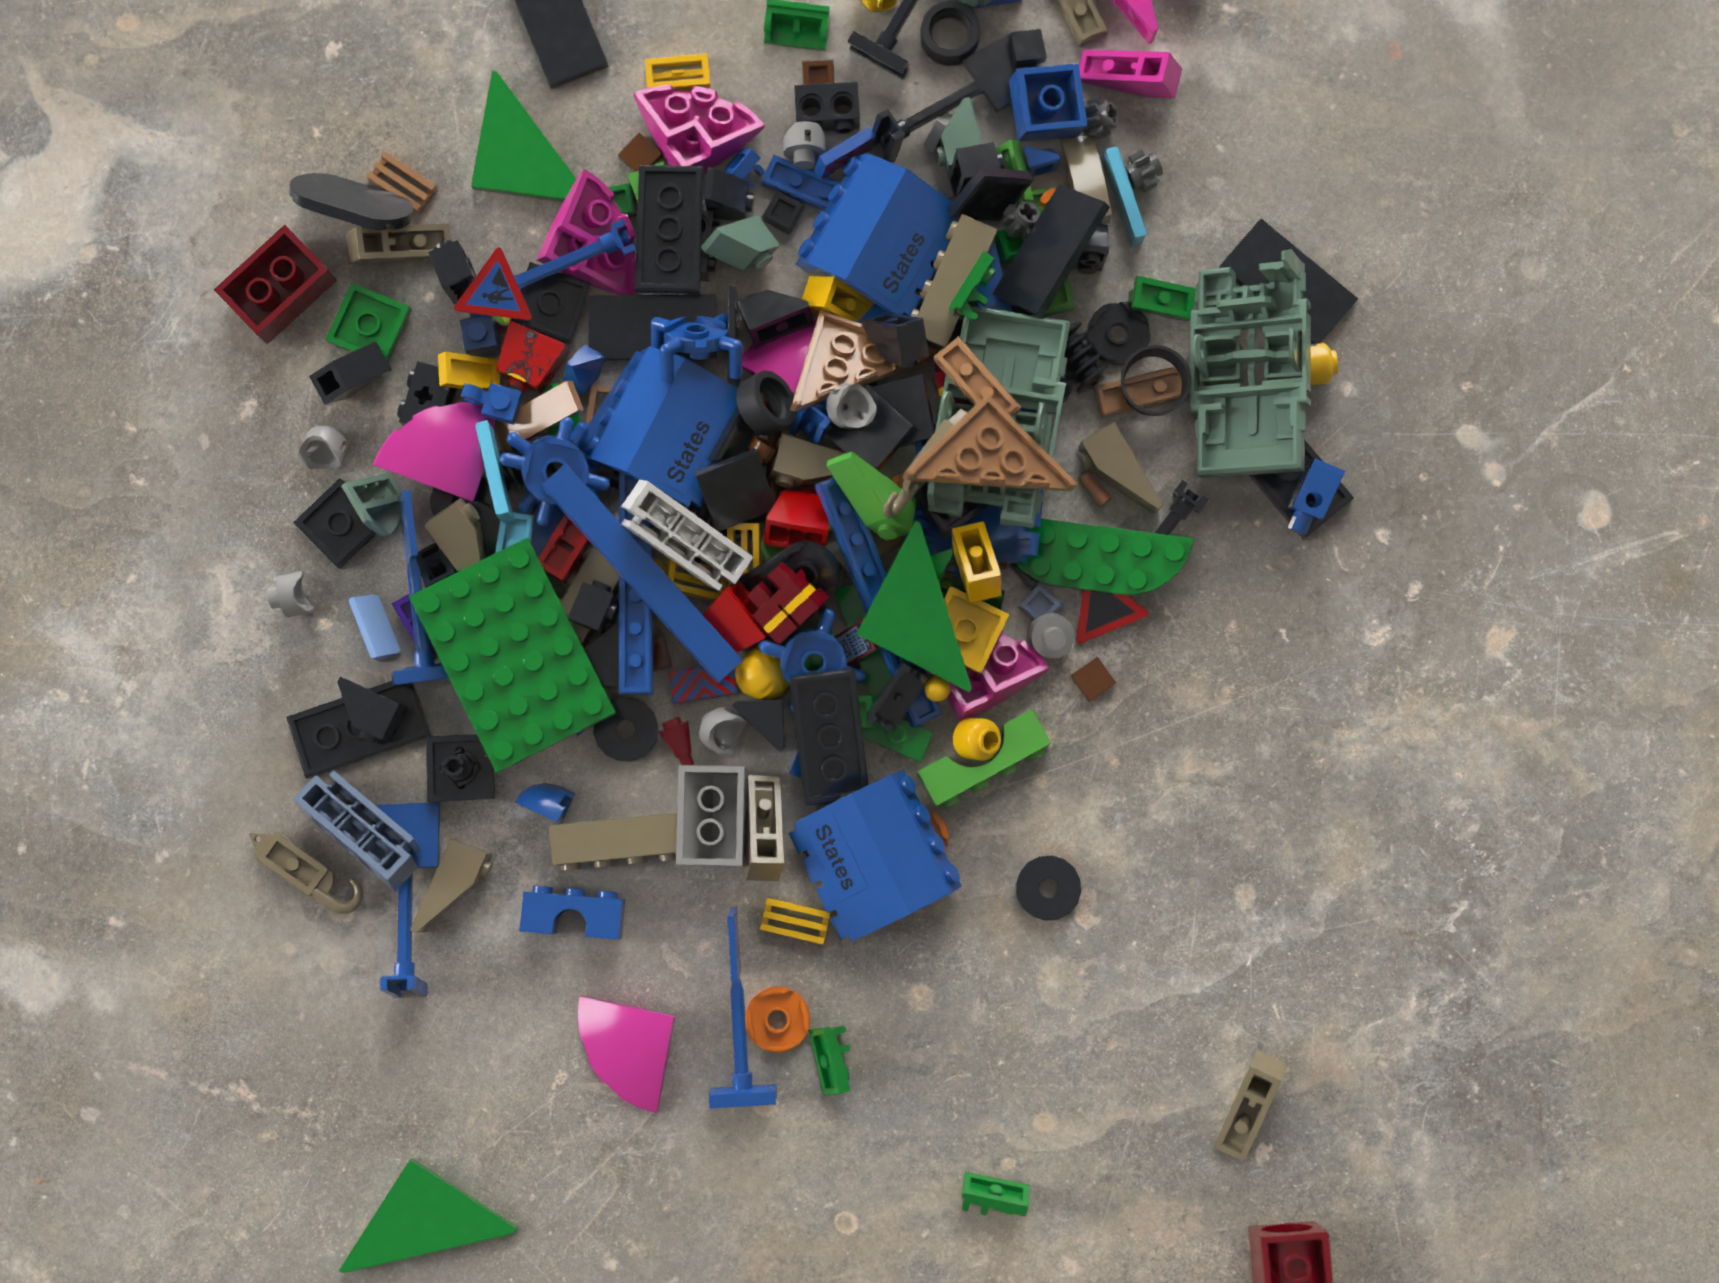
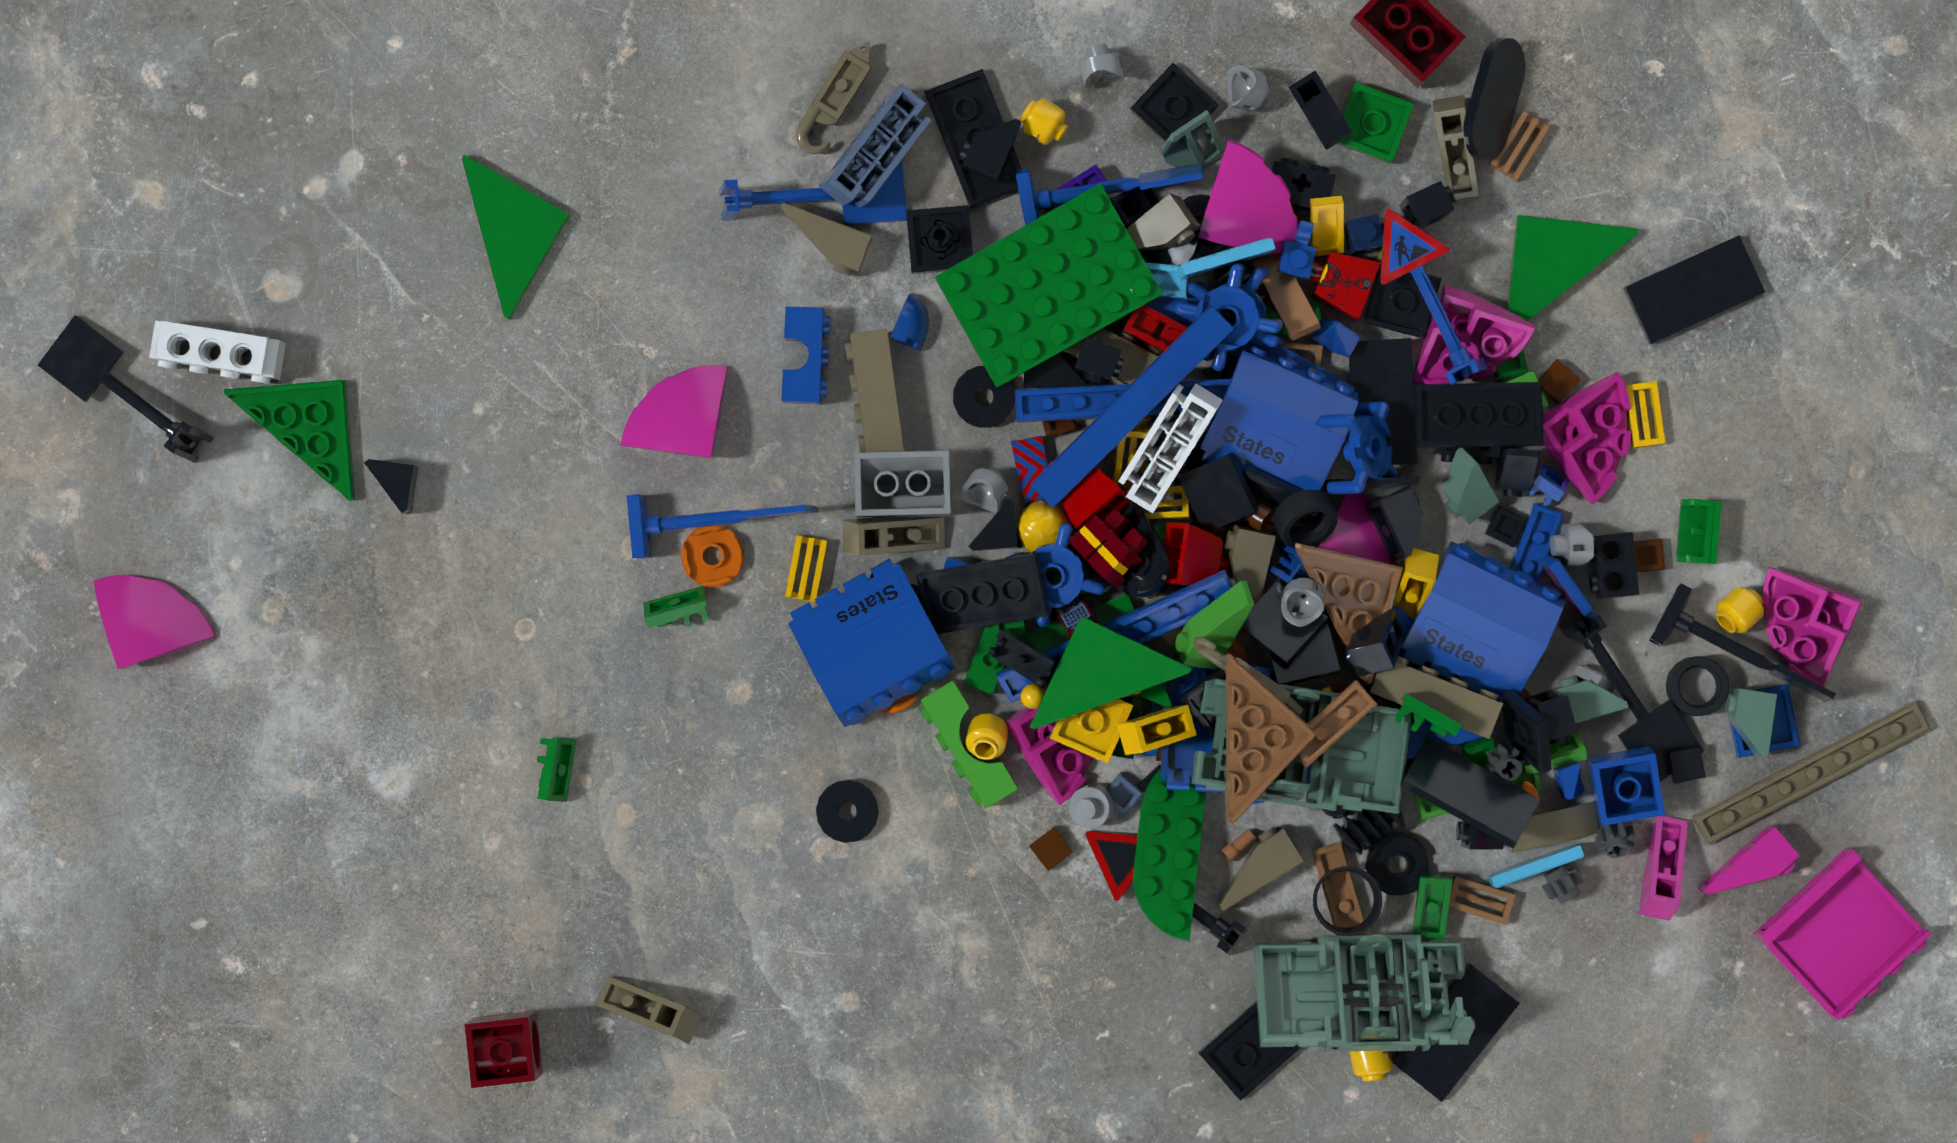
camera: 90 degrees right, 5 degrees up
(344, 654) = (1044, 121): none -> yellow head
(374, 627) = (1073, 148): light blue slope -> none
(677, 737) = (977, 447): dark red cone -> none
(1165, 226) = (1506, 908): none -> medium nougat tile
(1320, 481) = (1252, 1062): blue torso -> none

